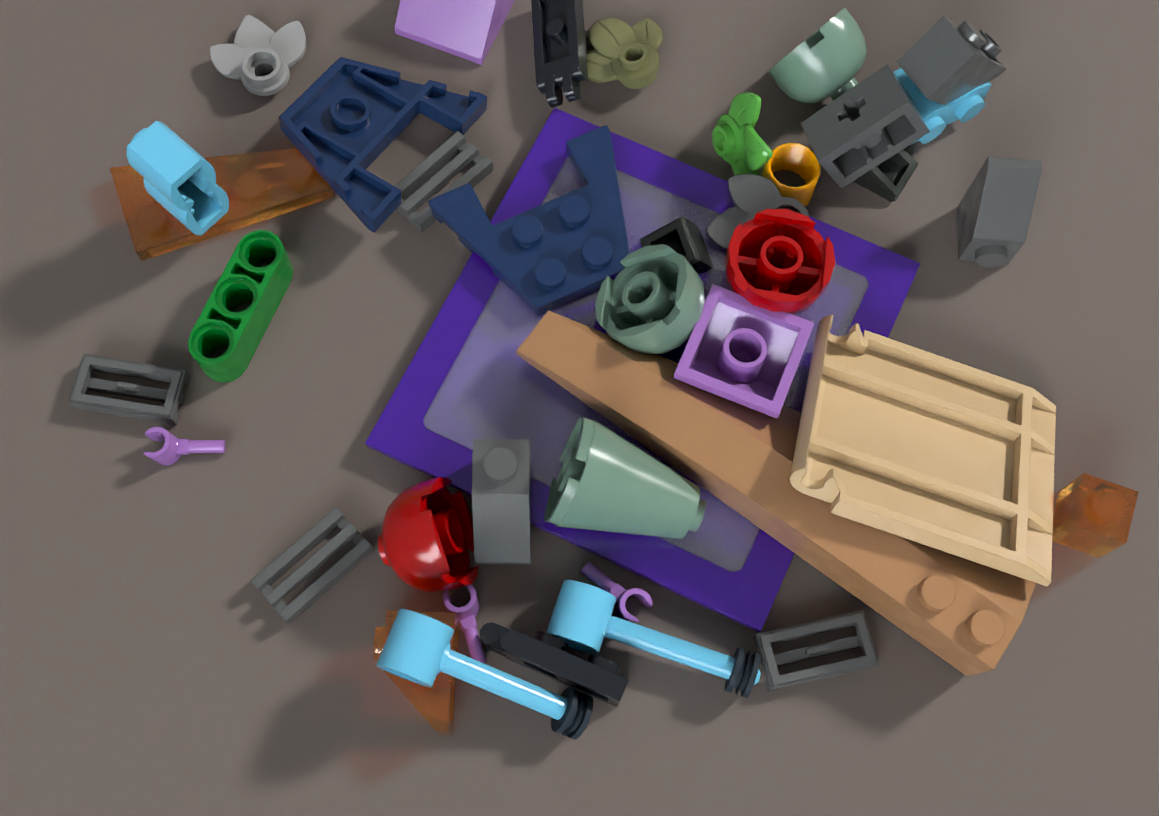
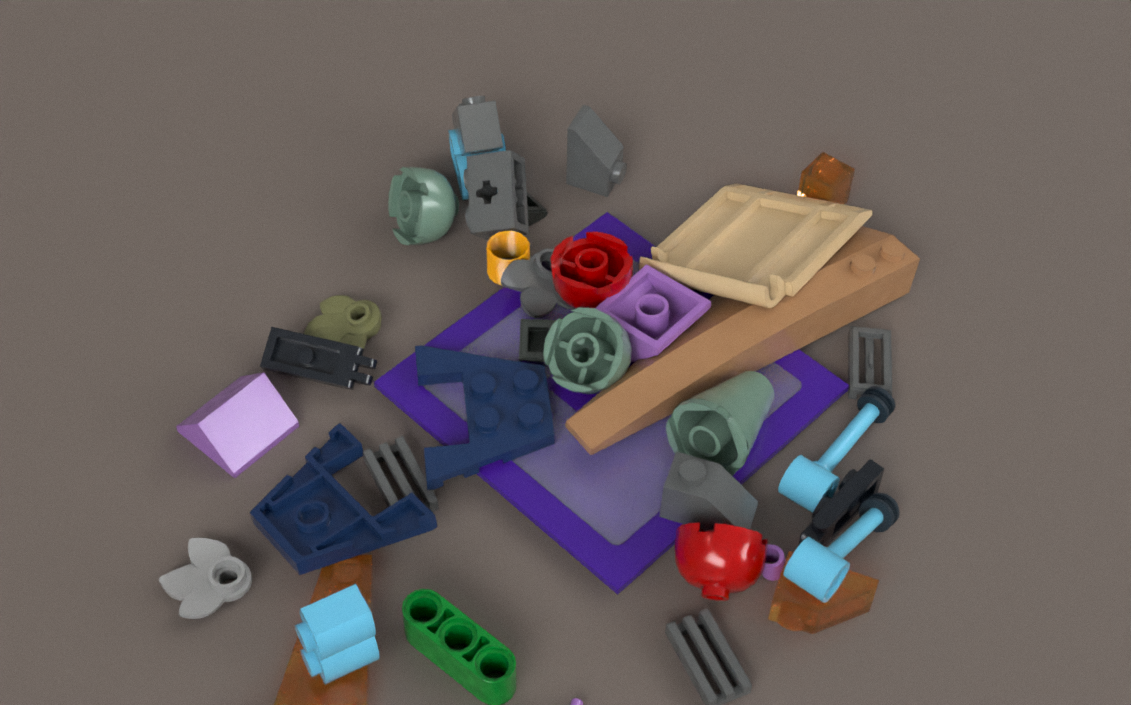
camera: 70 degrees left, 20 degrees down
(618, 591) = (802, 449): medium lavender hand -> none
(736, 138) = (474, 268): bright green plate -> none

